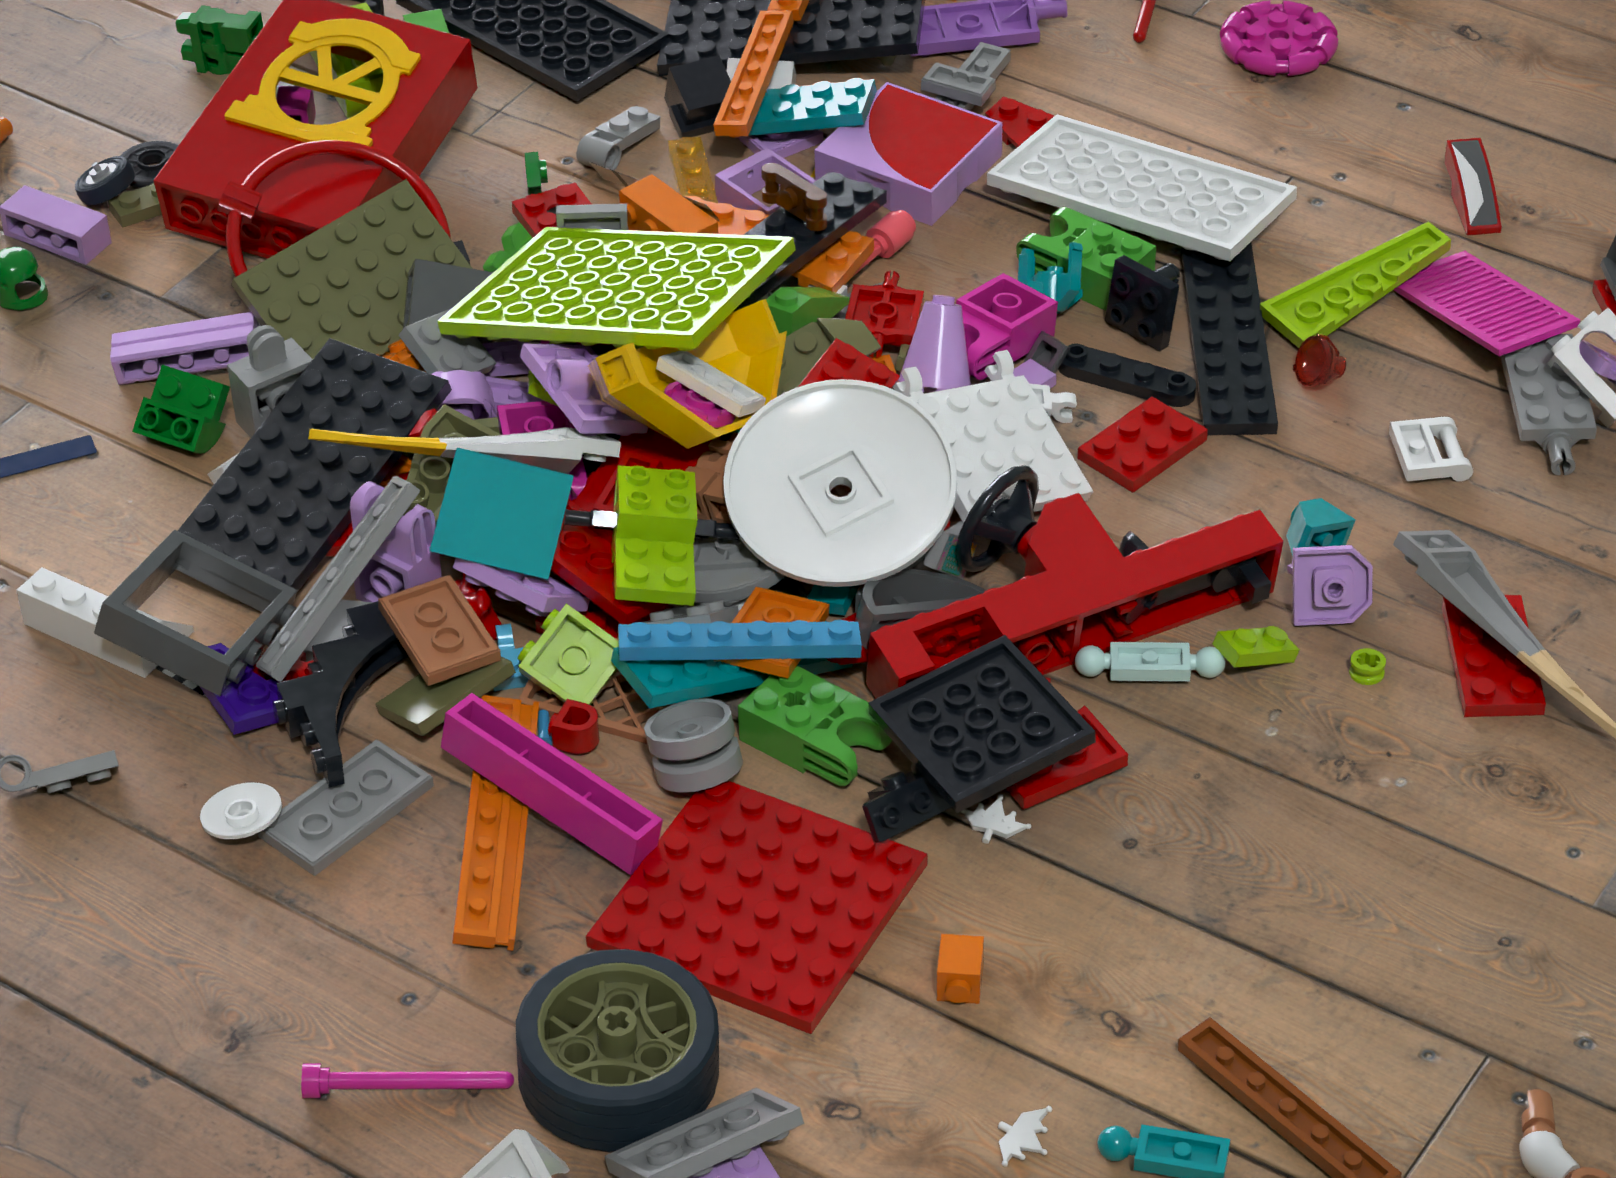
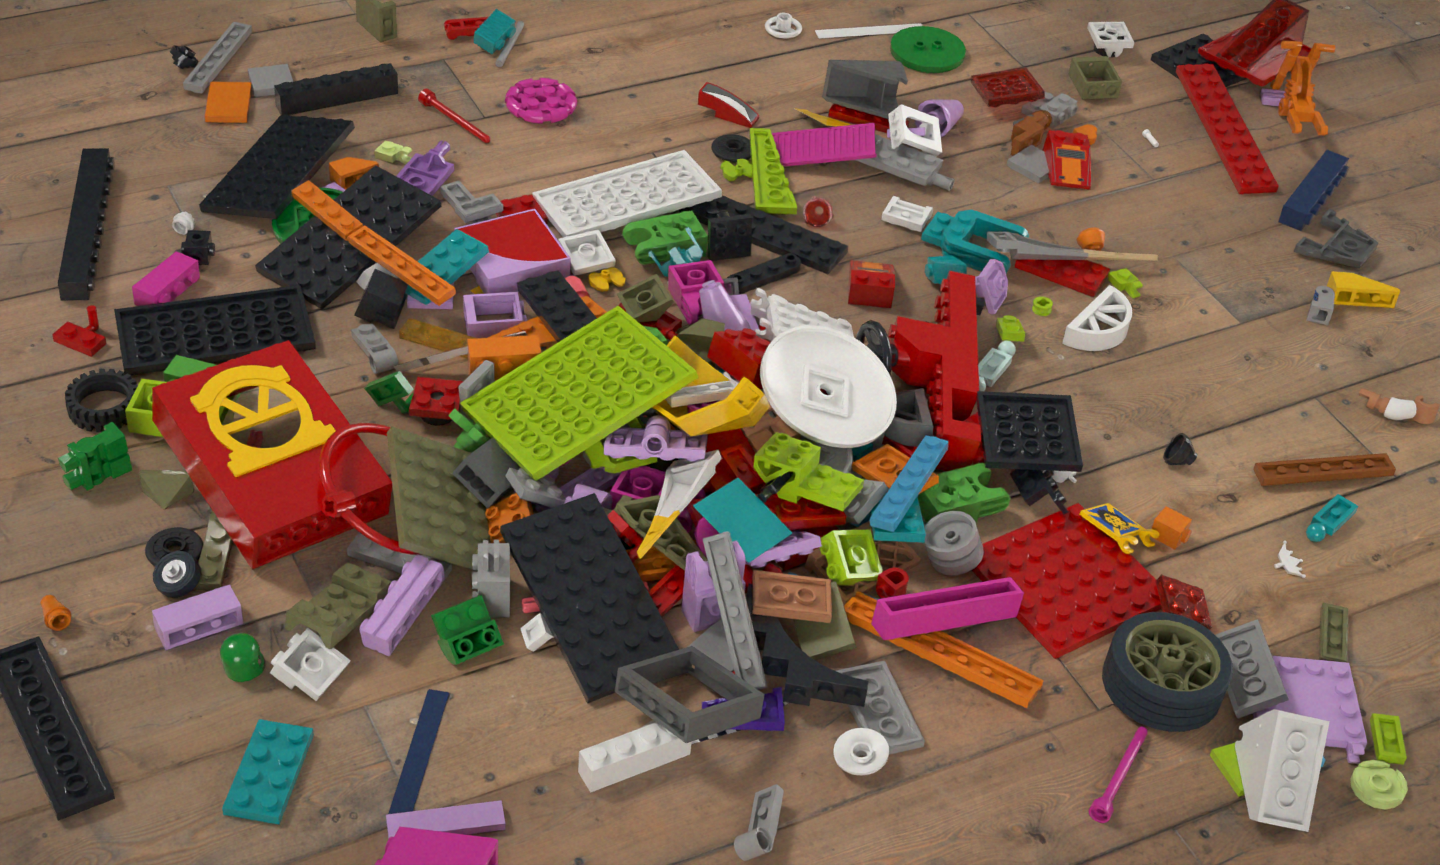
camera: 65 degrees left, 0 degrees up
(42, 328) = (308, 664): none -> white plate
(130, 304) = (340, 605): none -> olive piece
(794, 195) = (554, 295): reddish brown plate -> none
(798, 1033) = (1183, 600): none -> clear red plate
(900, 281) = (646, 299): none -> olive slope
(908, 902) = (1119, 526): none -> flag
(966, 253) = (600, 280): none -> yellow piece
(977, 206) = (587, 252): none -> white plate
(1142, 444) = (822, 292): red plate -> none
(1153, 924) = (1180, 451): none -> black piece
(1217, 474) = (871, 284): none -> red slope
(1331, 254) = (731, 172): none -> lime piece
(1336, 718) = (1108, 301): none -> white window
(1366, 230) = (724, 145): none -> black wheel
(1441, 504) = (955, 232): none -> teal plate
(1536, 732) = (1125, 280): none -> lime plate
(1562, 286) = (825, 120): none -> yellow sticker
(1588, 655) = (1091, 239): none -> orange cone

